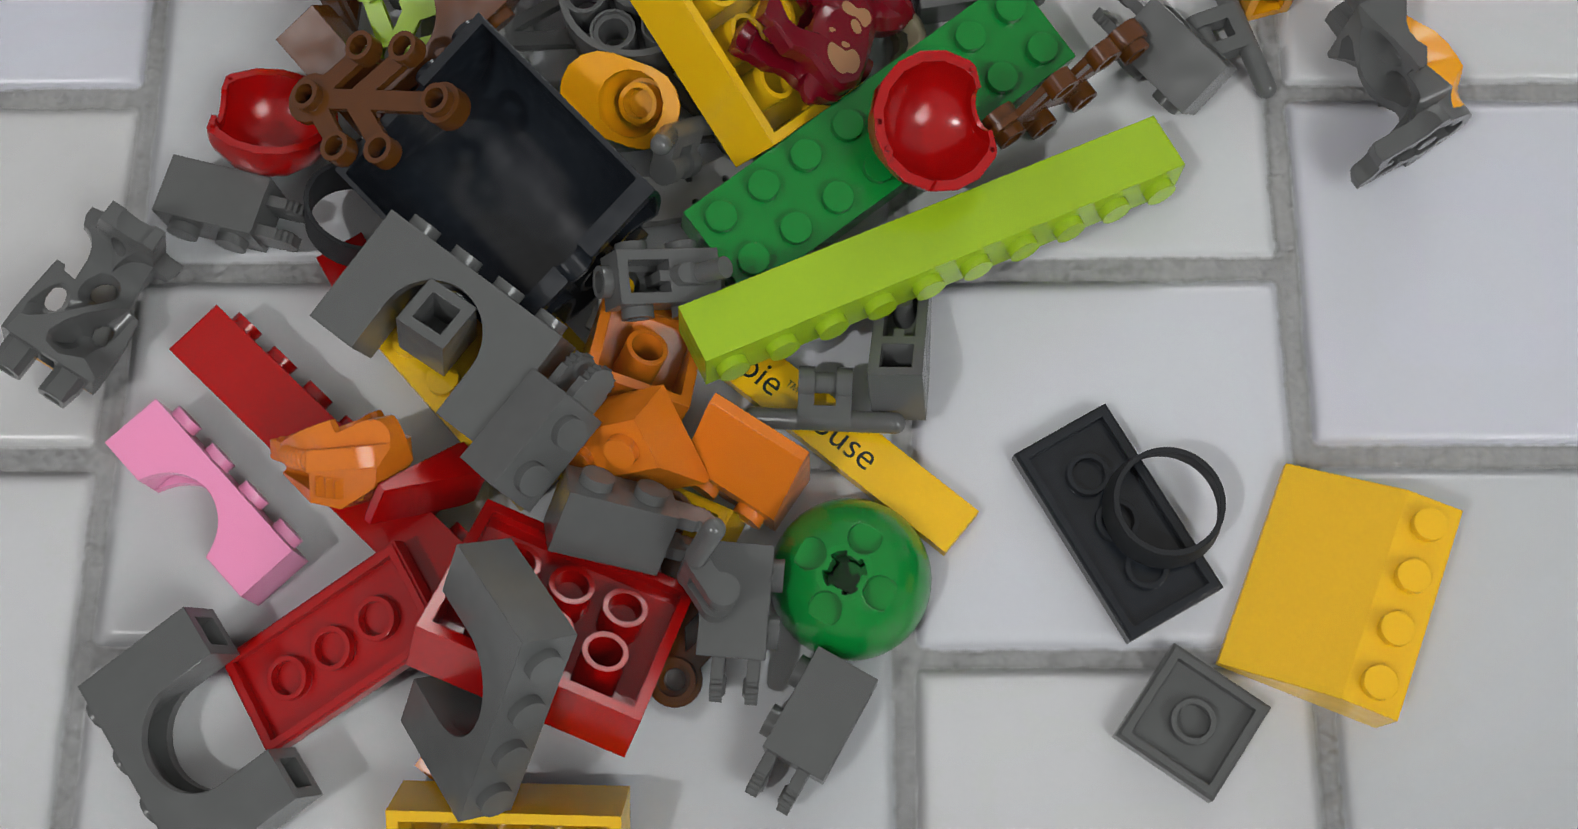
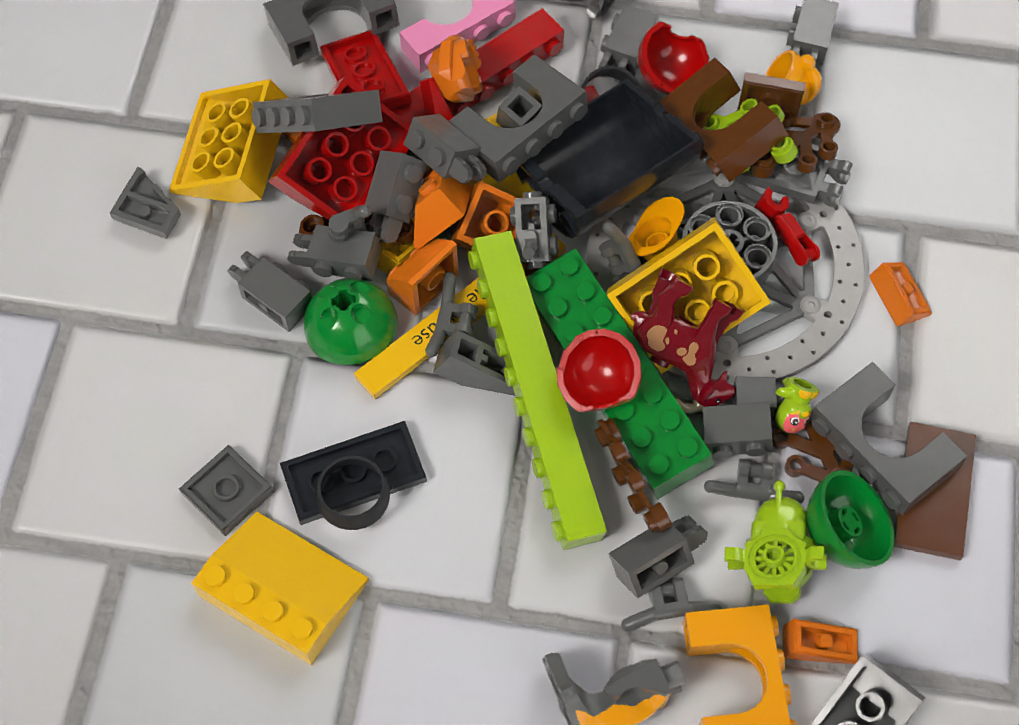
camera: 95 degrees right, 10 degrees down
(320, 97) = (671, 75): reddish brown plant -> none

